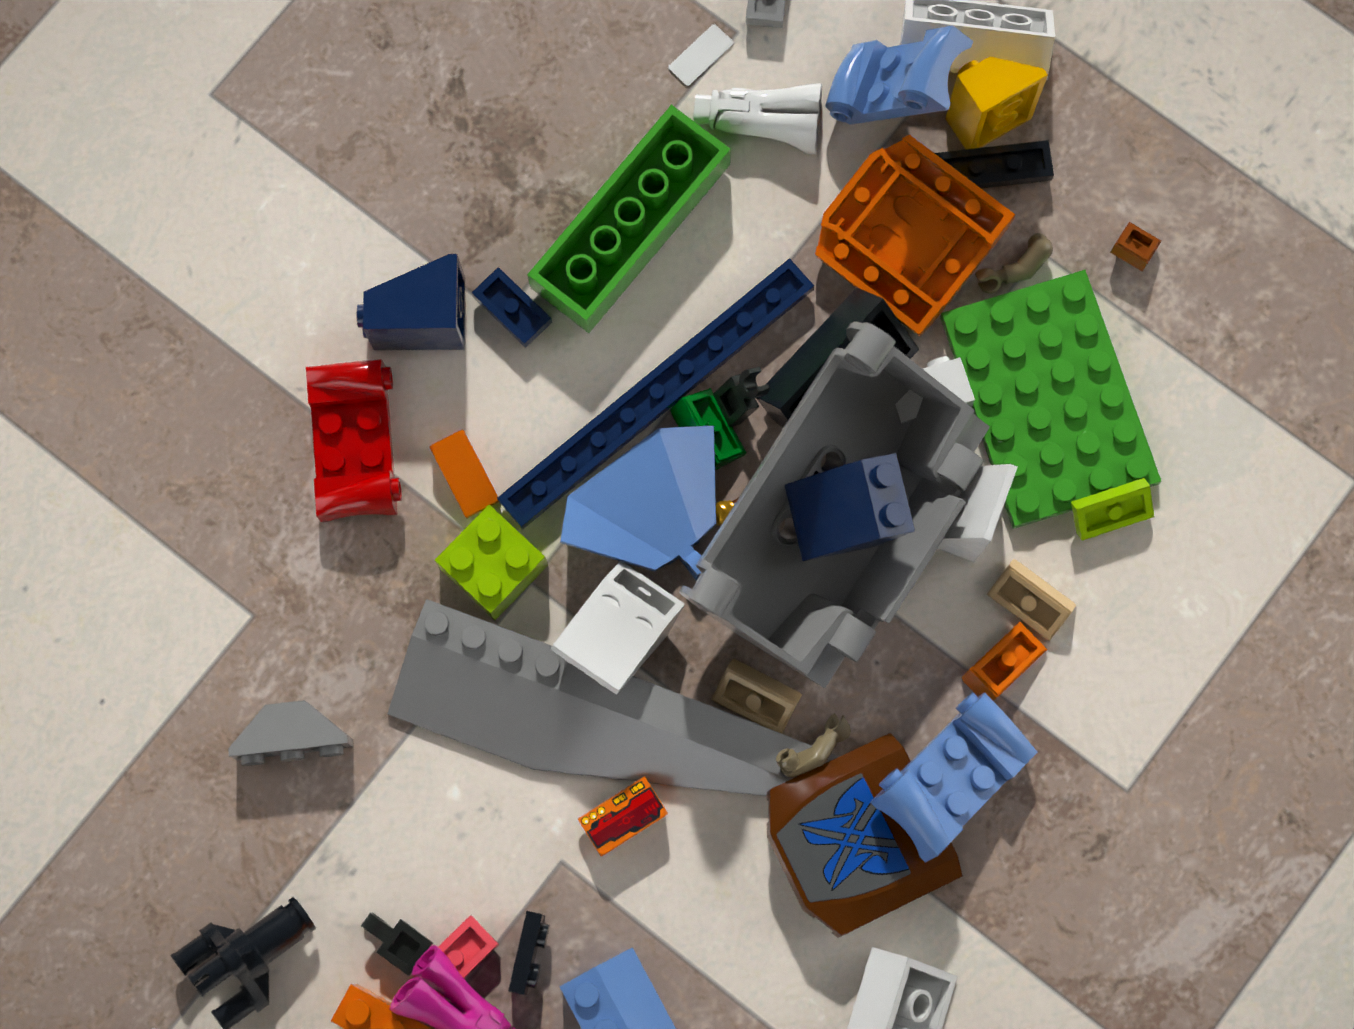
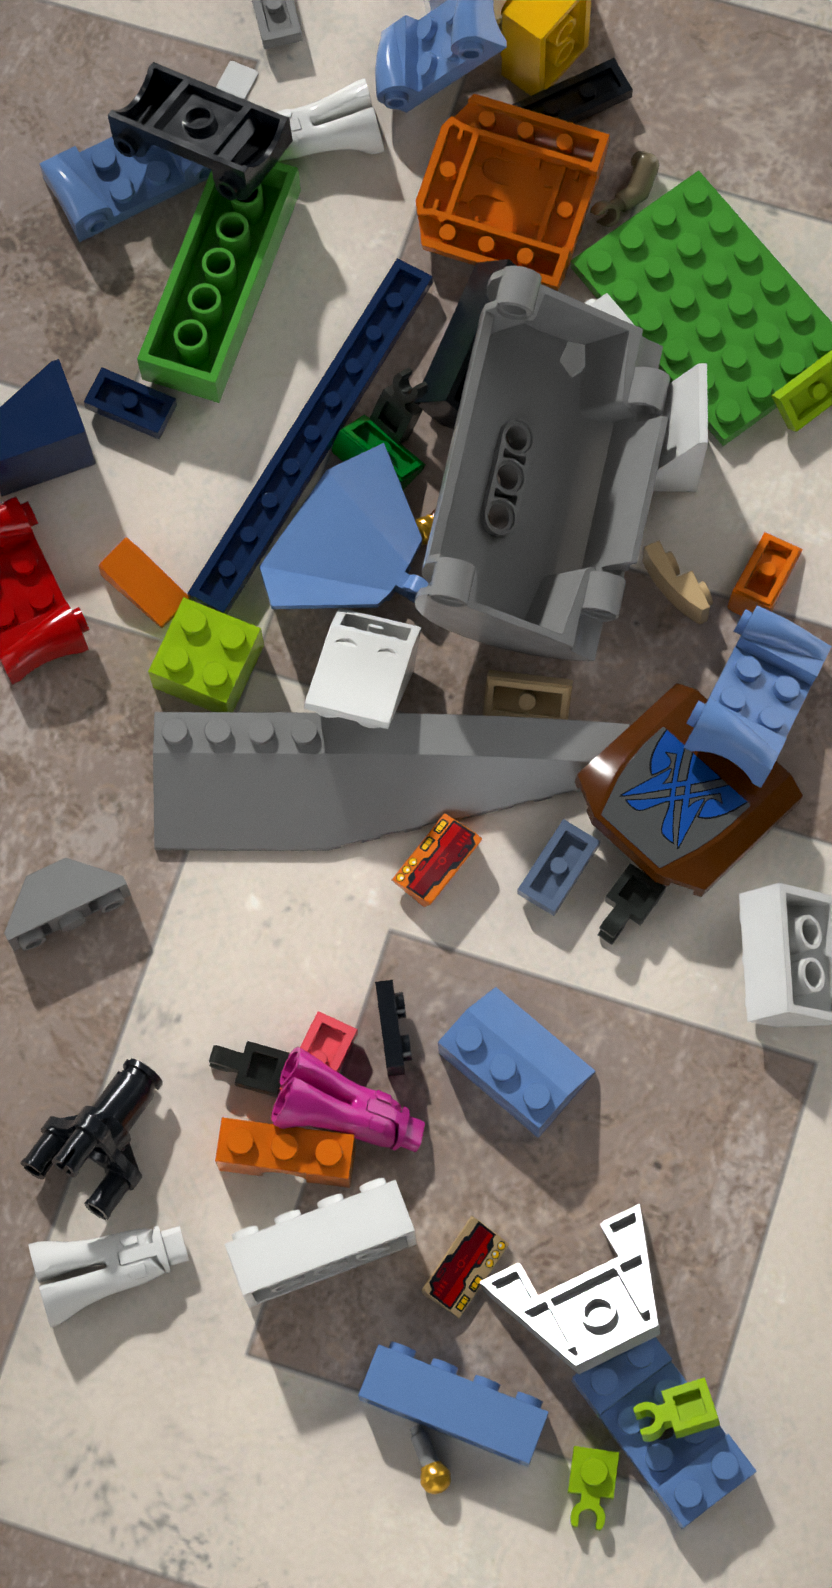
camera: 20 degrees left, 5 degrees down
(590, 94) = (106, 187): none -> medium blue piece
(659, 86) = (204, 126): none -> black piece
(725, 862) = (558, 867): none -> sand blue plate
(778, 913) = (632, 899): none -> pearl dark grey plate
(795, 764) = (593, 742): dark tan arm -> none
(850, 507) = (554, 466): dark blue slope -> none
(927, 652) = (682, 591): none -> tan slope
(1031, 599) = (767, 507): tan slope -> none
(1135, 246) = (740, 131): dark orange tile -> none

